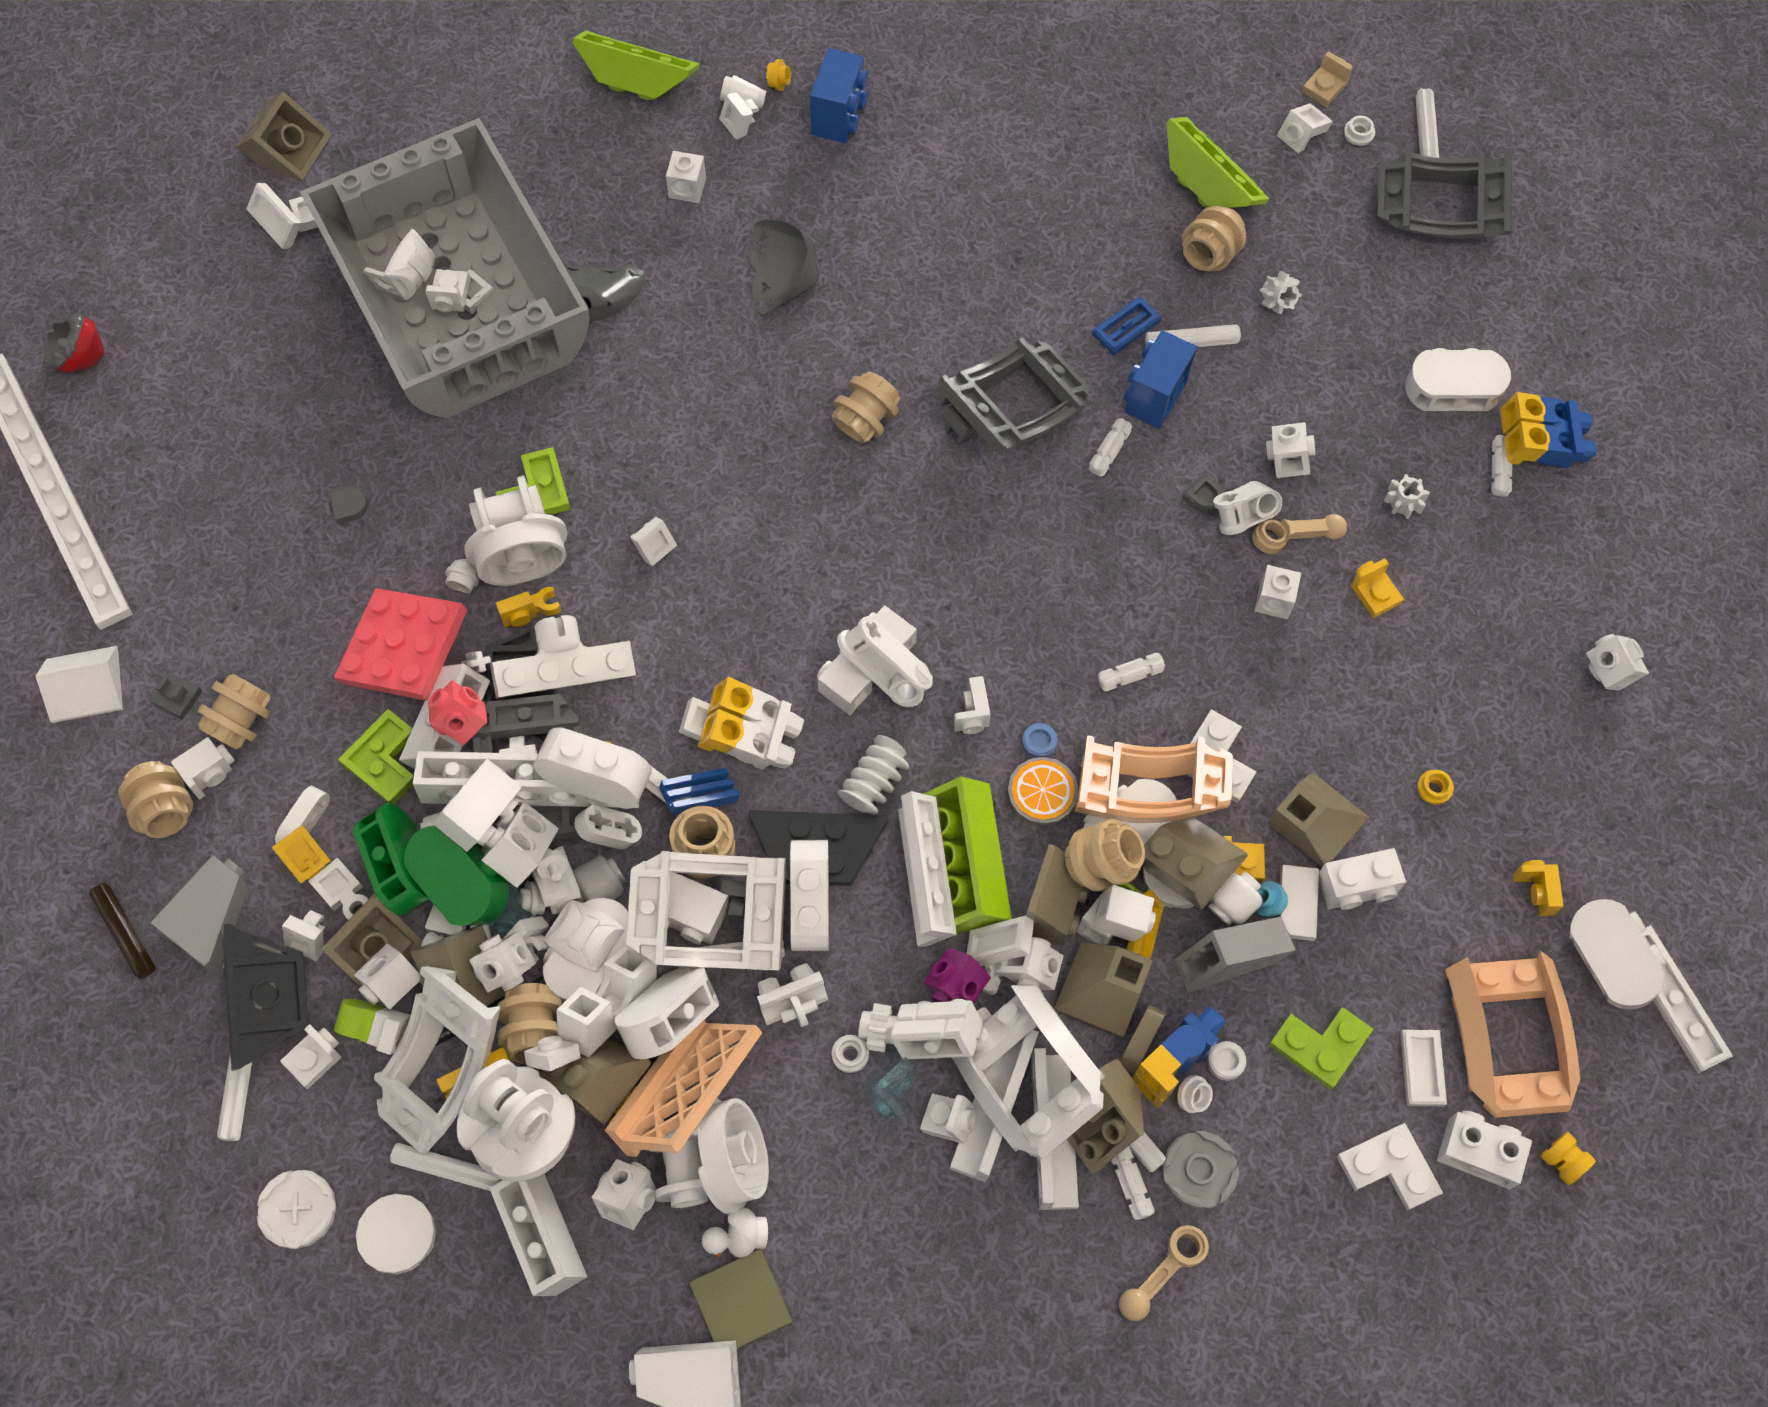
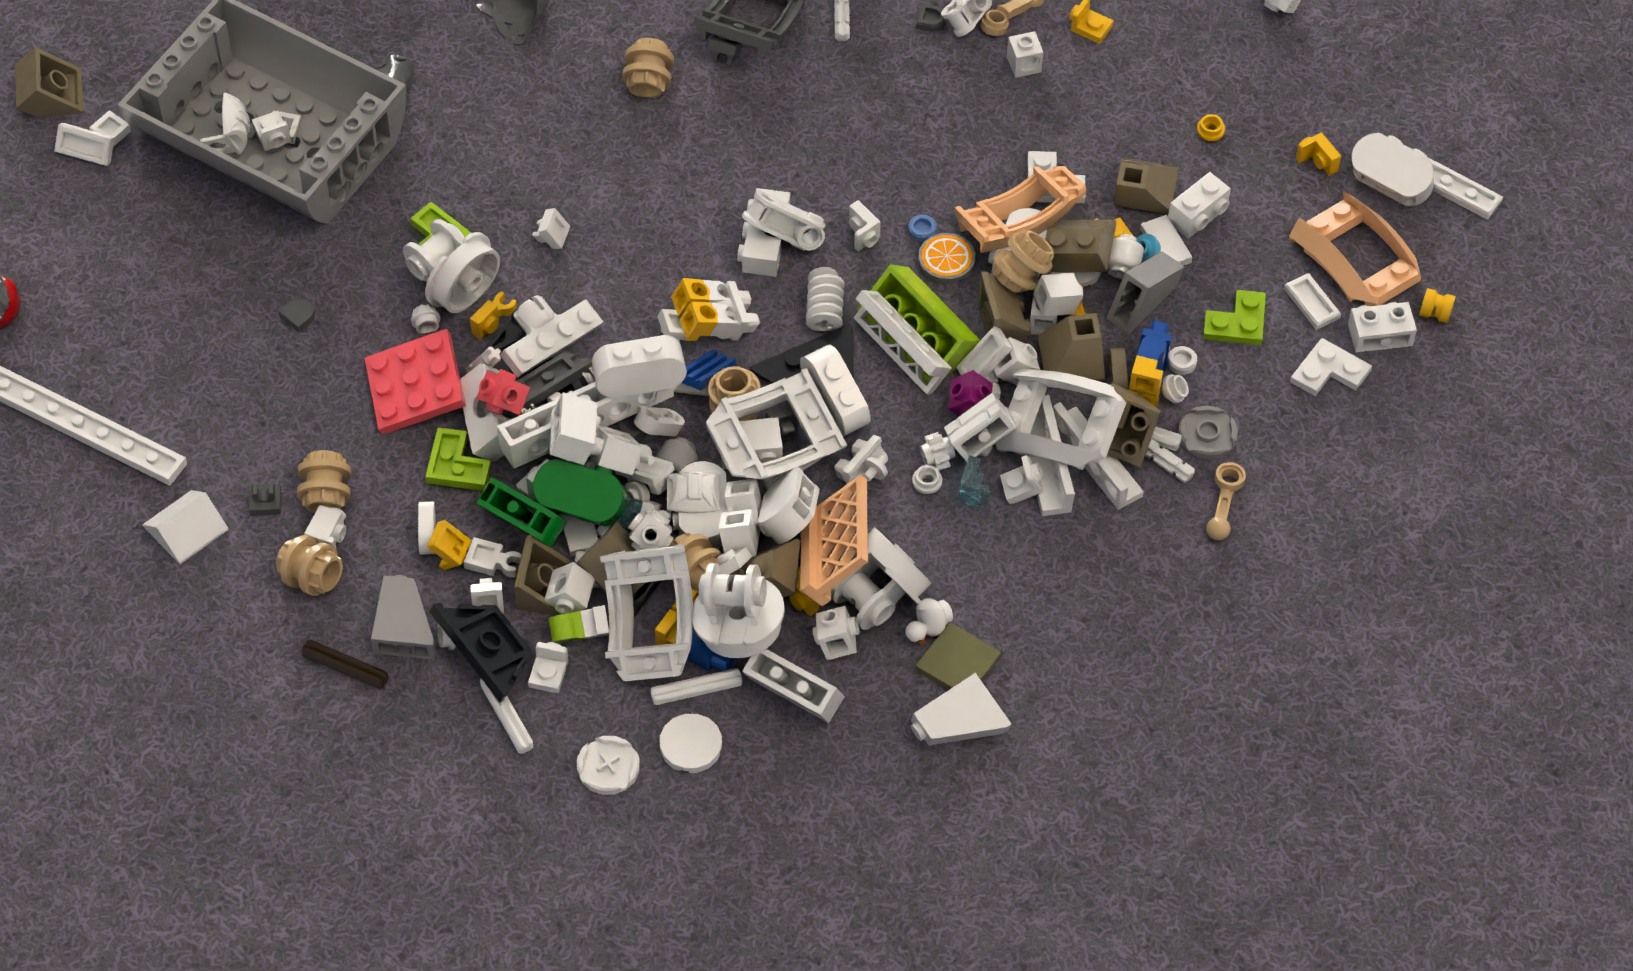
camera: 30 degrees left, 10 degrees down
(1131, 671) = (956, 154): white axle -> none

